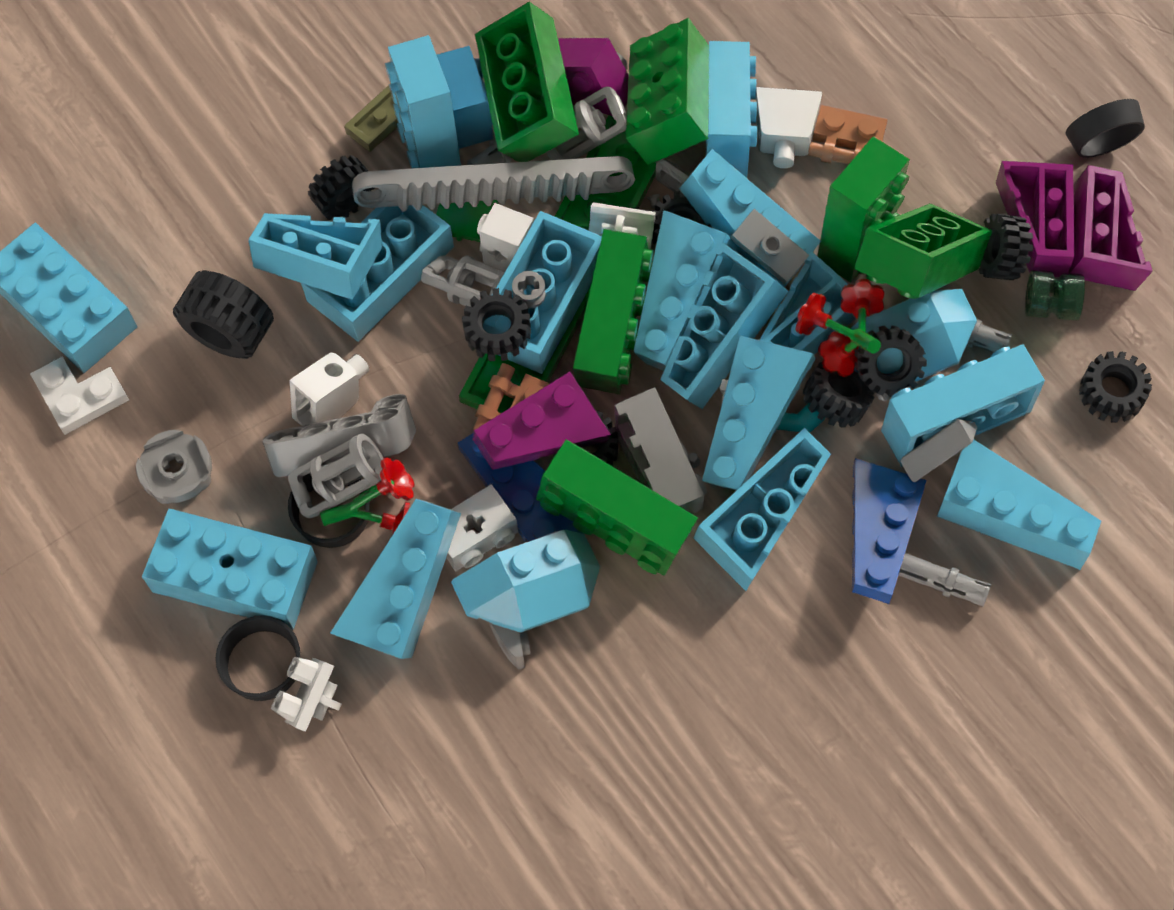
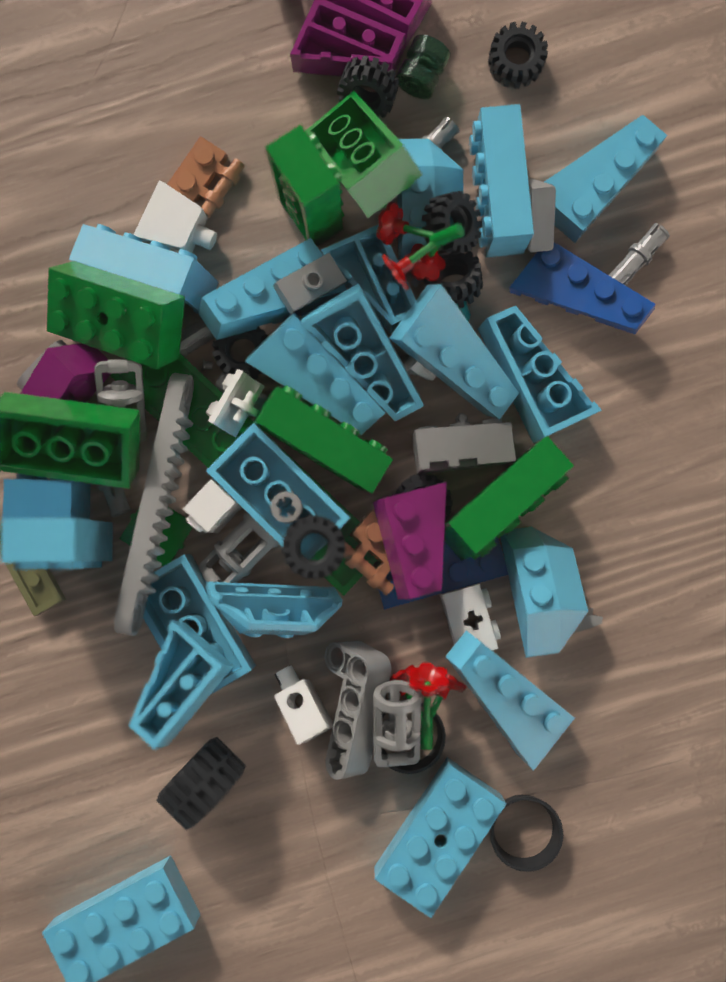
camera: 70 degrees left, 20 degrees up
(75, 402) = (228, 932): white plate -> none
(178, 486) = (310, 872): light grey plate -> none
(313, 695) = (573, 796): white hips -> none
(333, 187) = (101, 640): black tyre -> none
(422, 325) = (274, 608): none -> medium azure wedge

